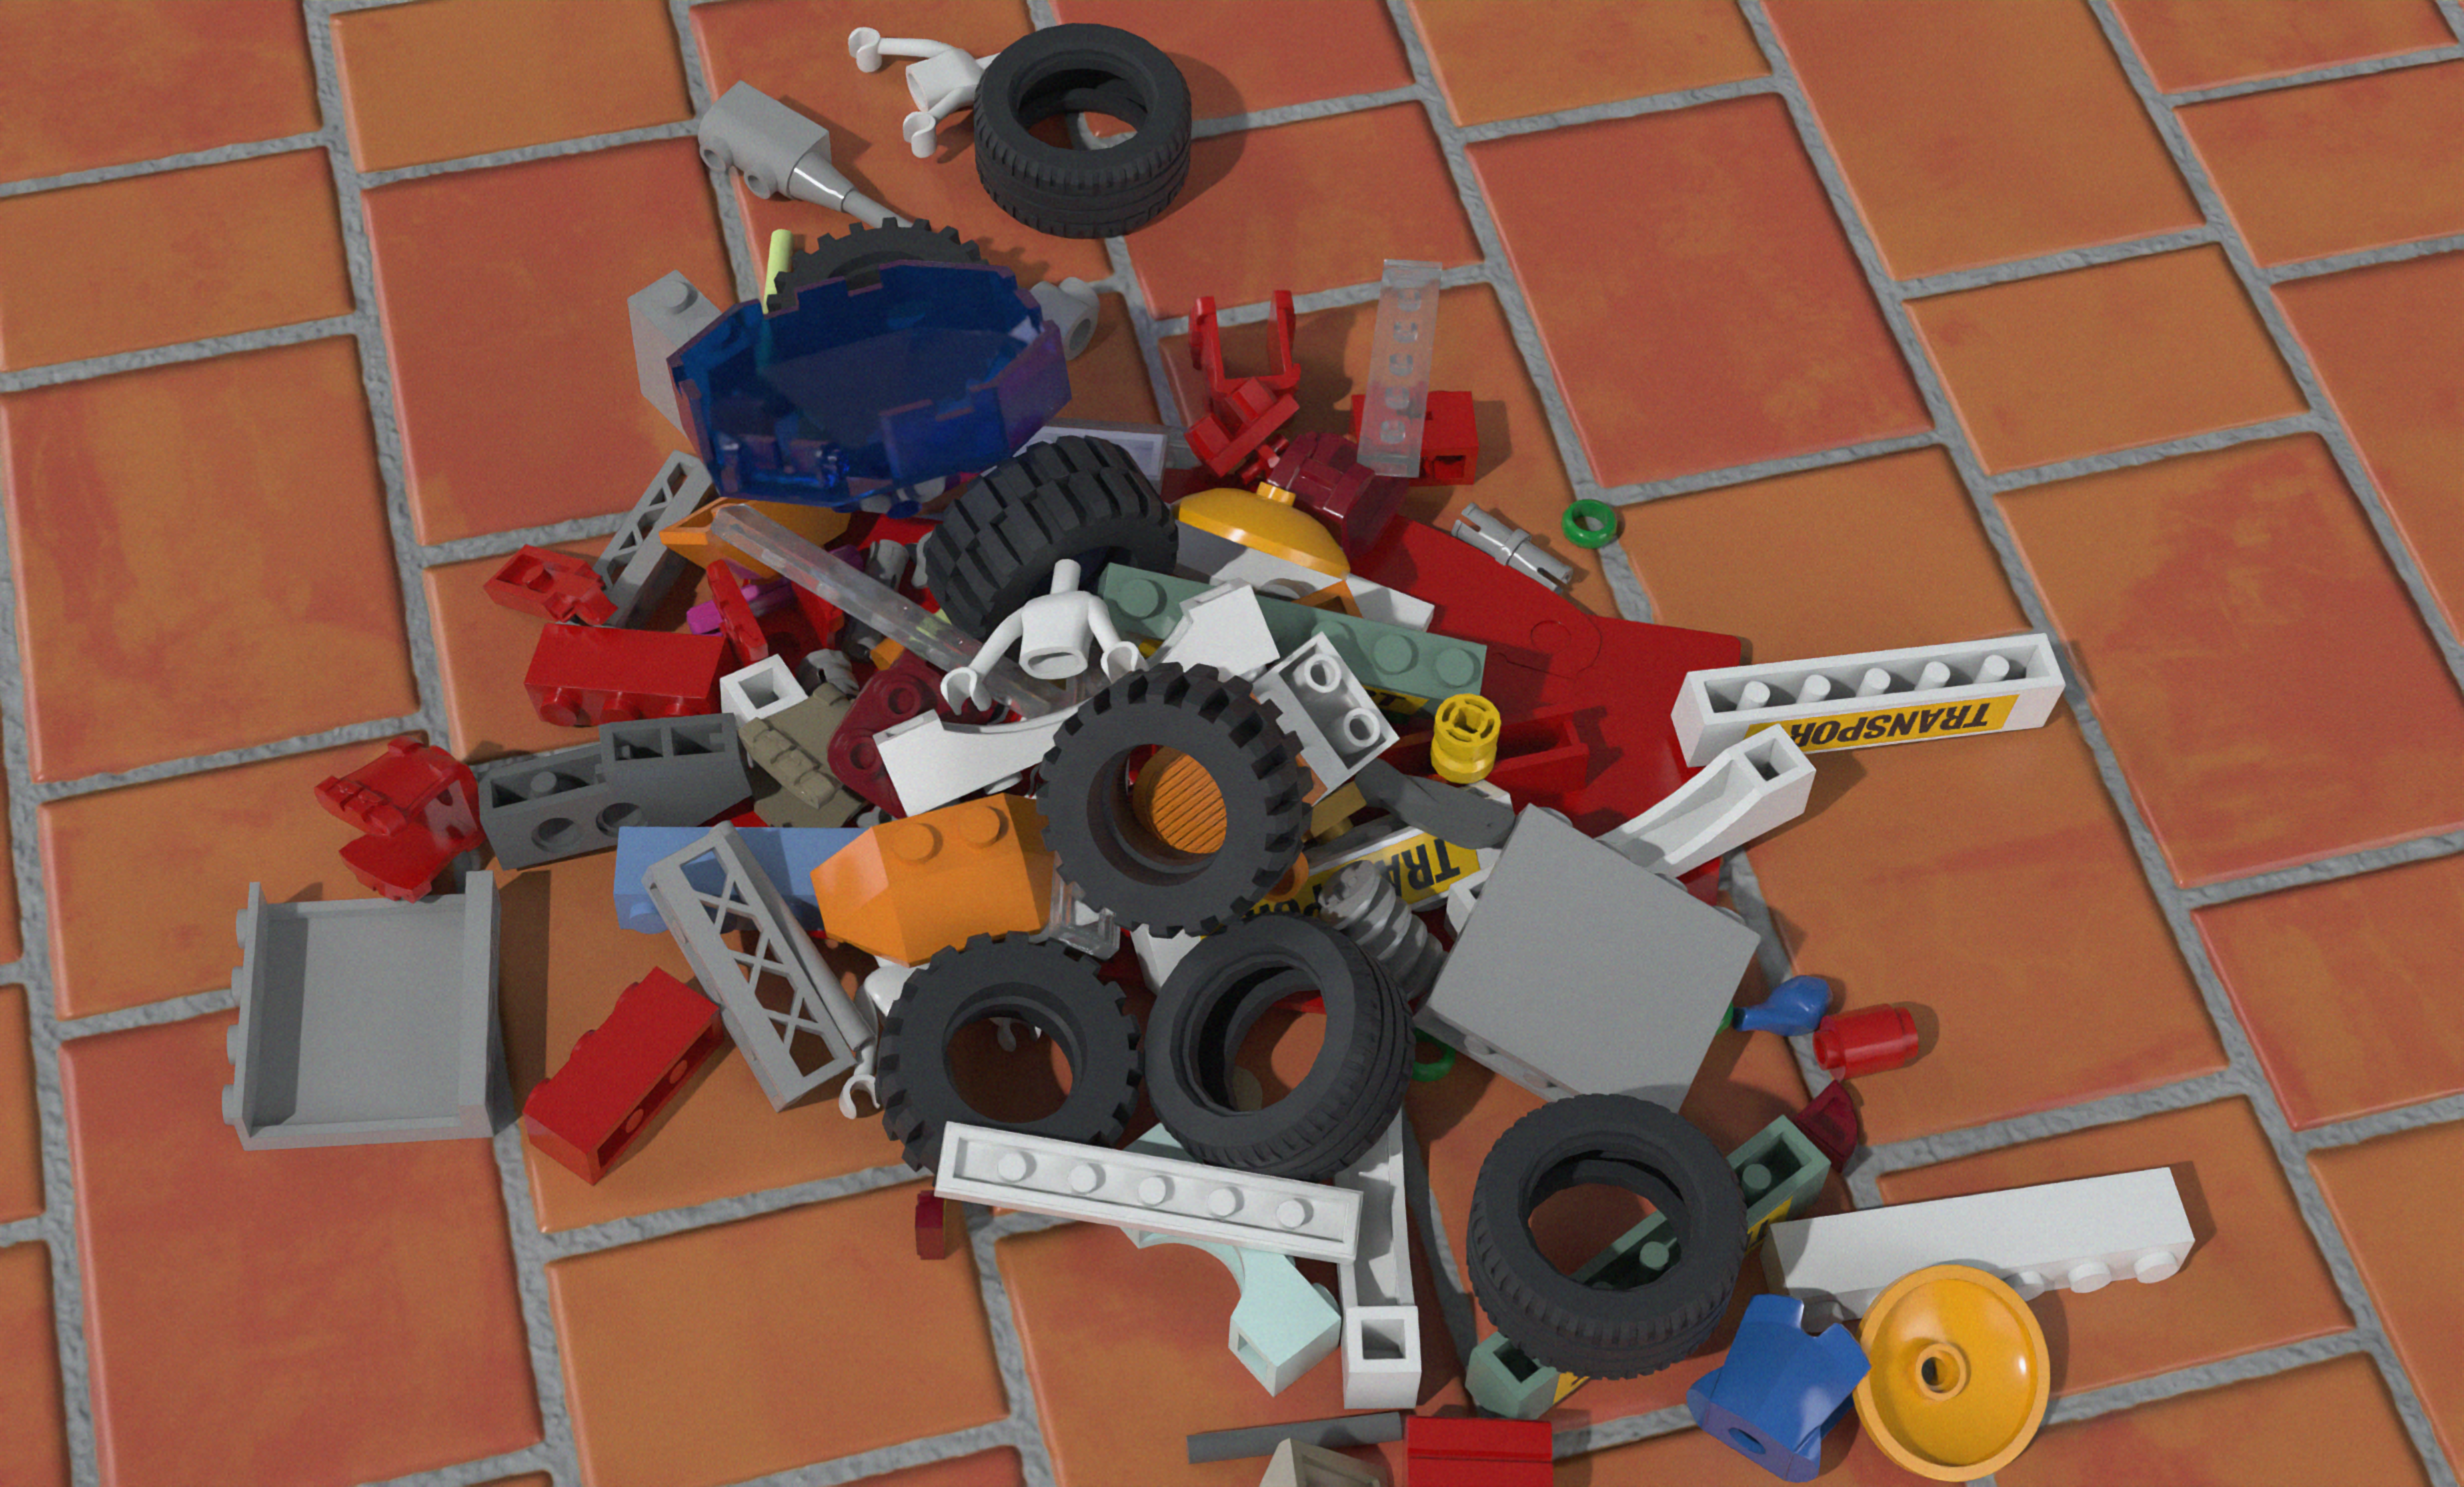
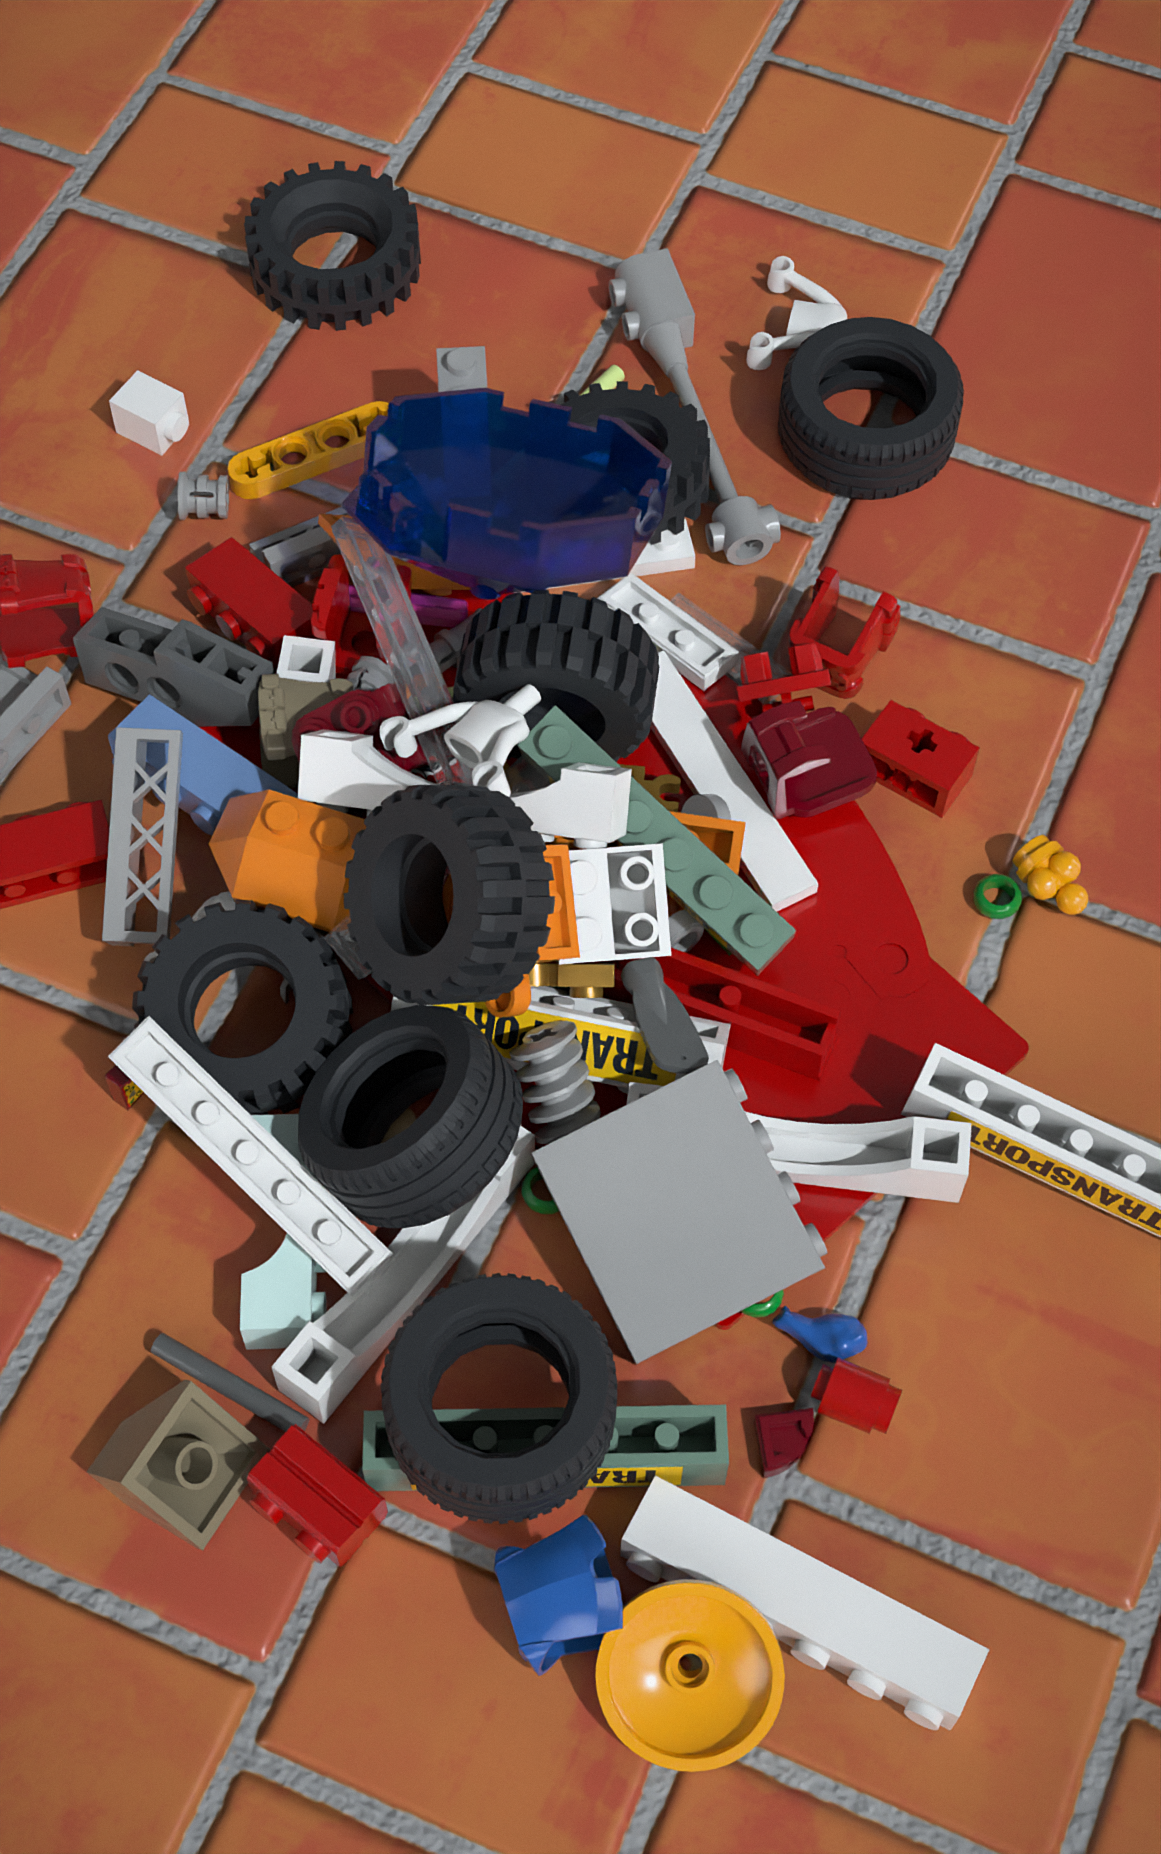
camera: 40 degrees right, 5 degrees up
(319, 553) = (149, 413): none -> white brick
(356, 213) = (333, 203): none -> black tyre
(446, 622) = (204, 487): none -> light grey bush
(527, 488) = (307, 441): none -> light orange beam
(550, 587) = (257, 516): red hinge -> none
(828, 988) = (187, 827): light grey piece -> none
(1265, 524) = (712, 754): light orange dish -> none
(1400, 368) = (940, 701): clear tile -> none
(1465, 738) = (735, 998): yellow wheel -> none
(1510, 547) = (919, 880): light grey pin -> none
(1626, 471) = (1050, 872): none -> light orange piece

